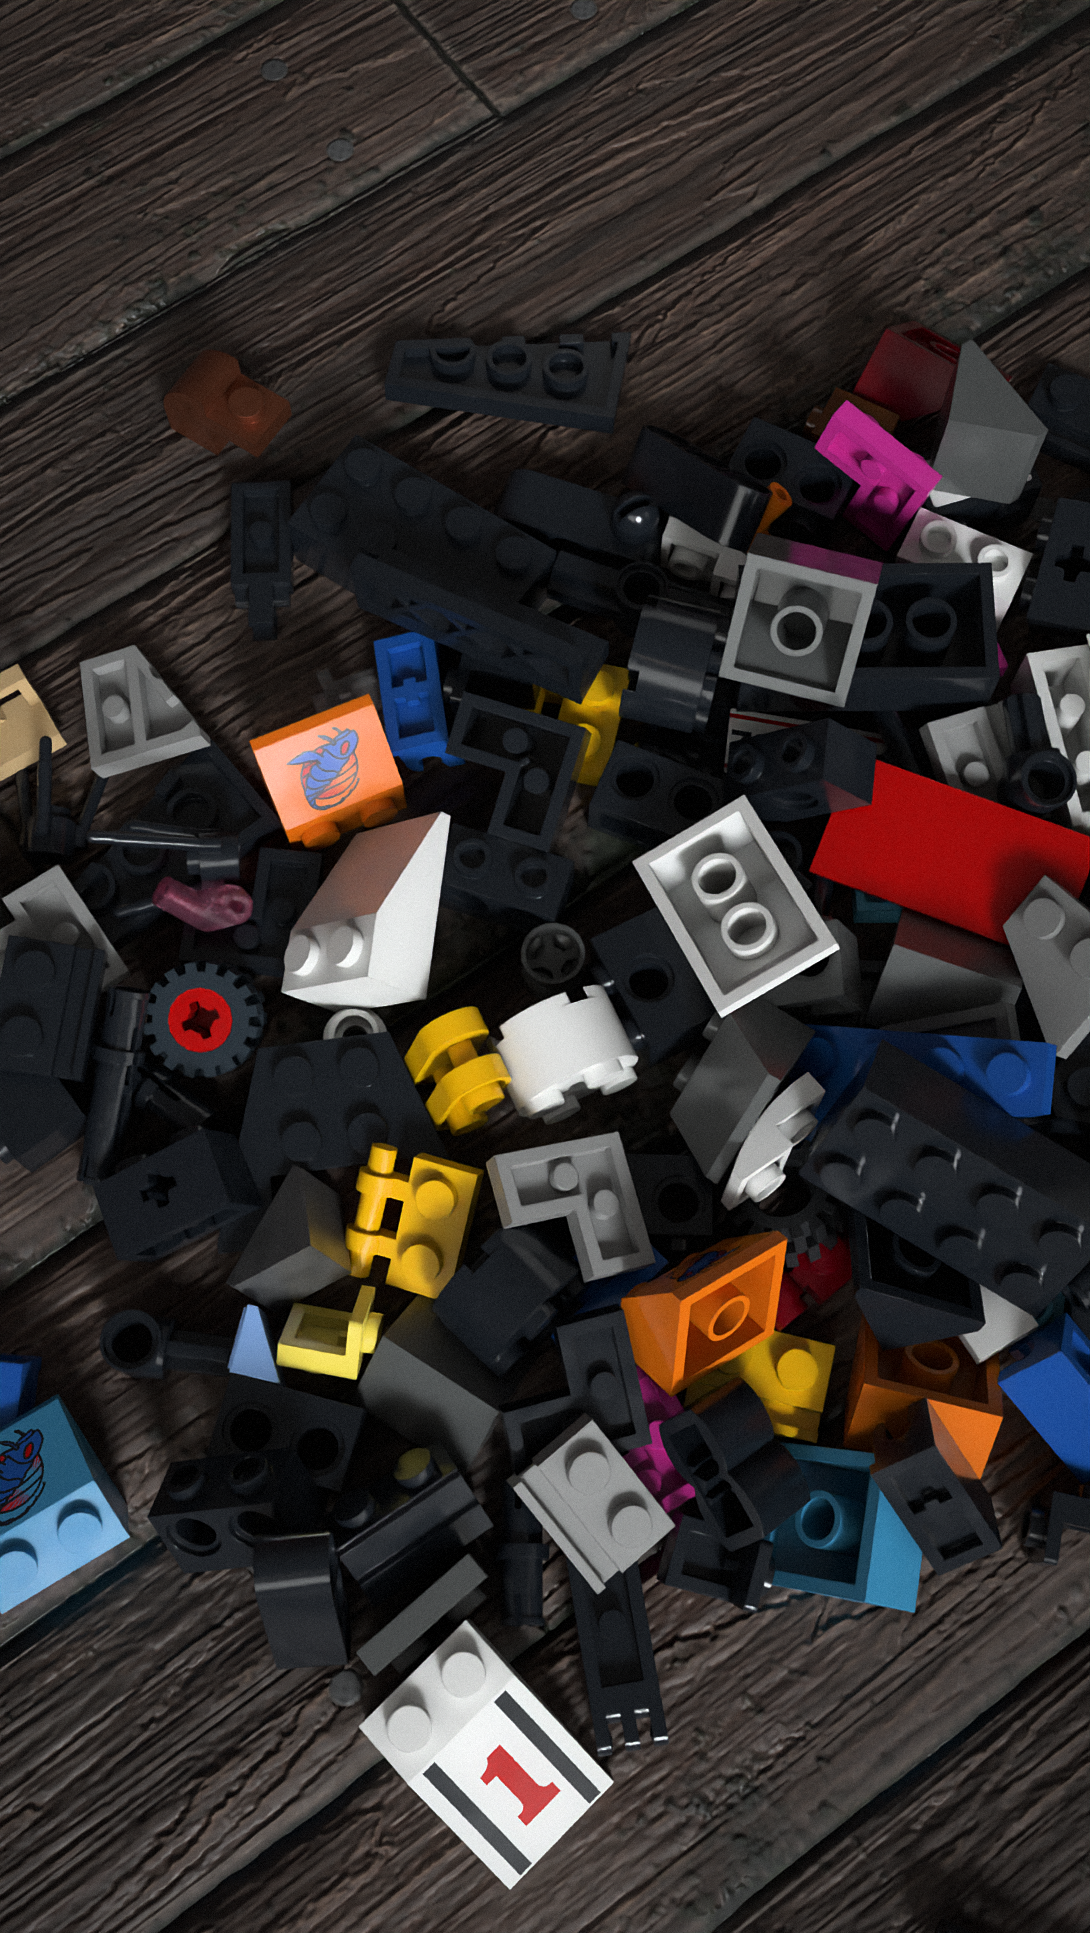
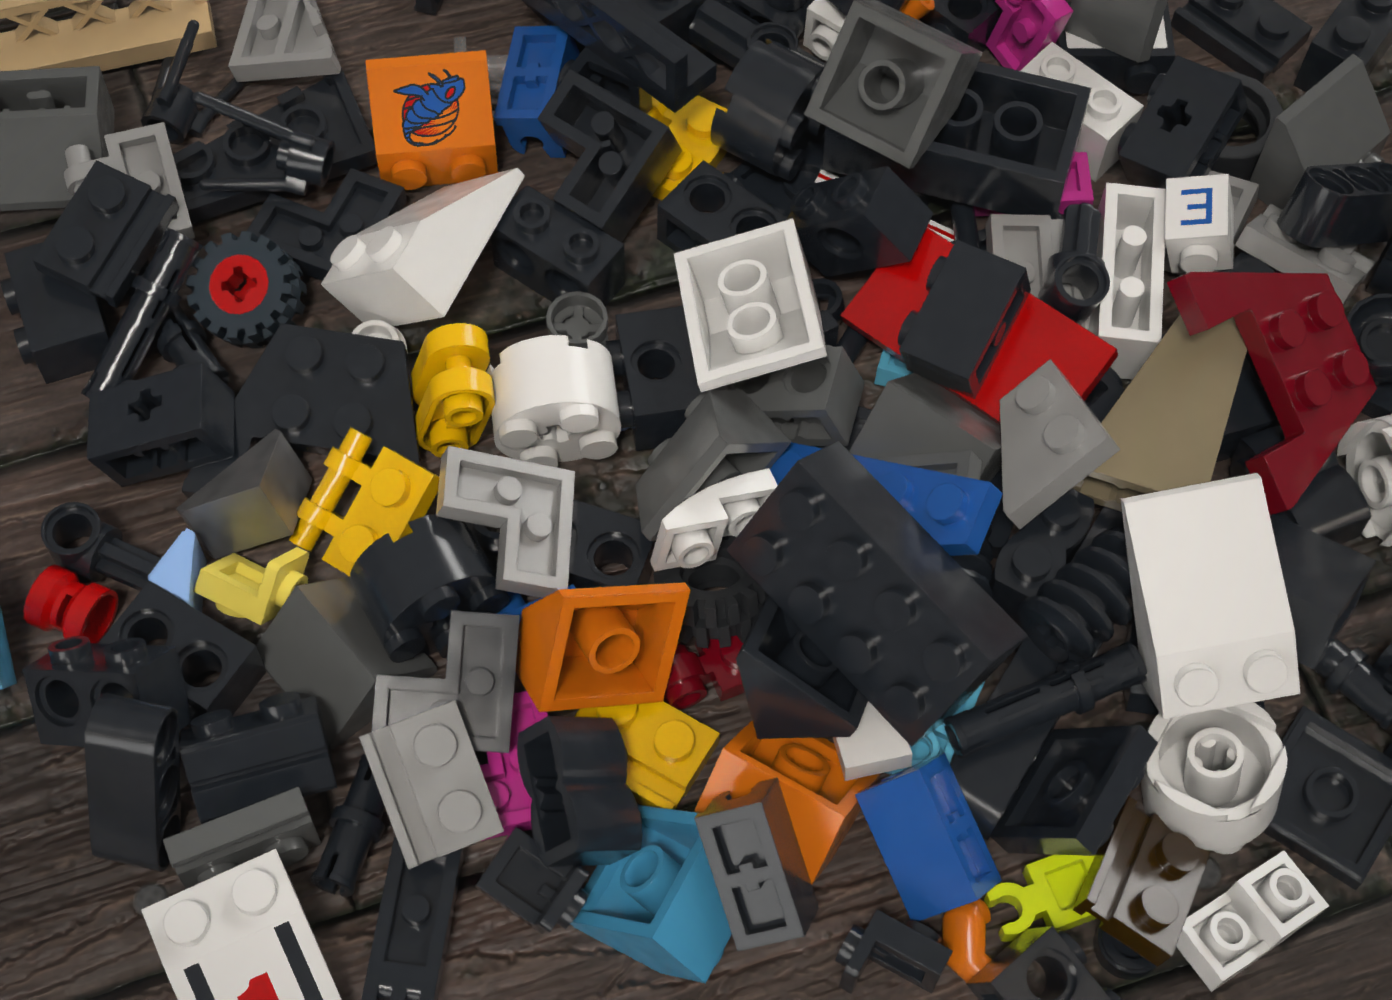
camera: 15 degrees right, 10 degrees down
(156, 1416) = (66, 604): none -> red wheel
(205, 908) = (280, 198): clear pink arm -> none
(944, 852) = (963, 318): none -> black brick

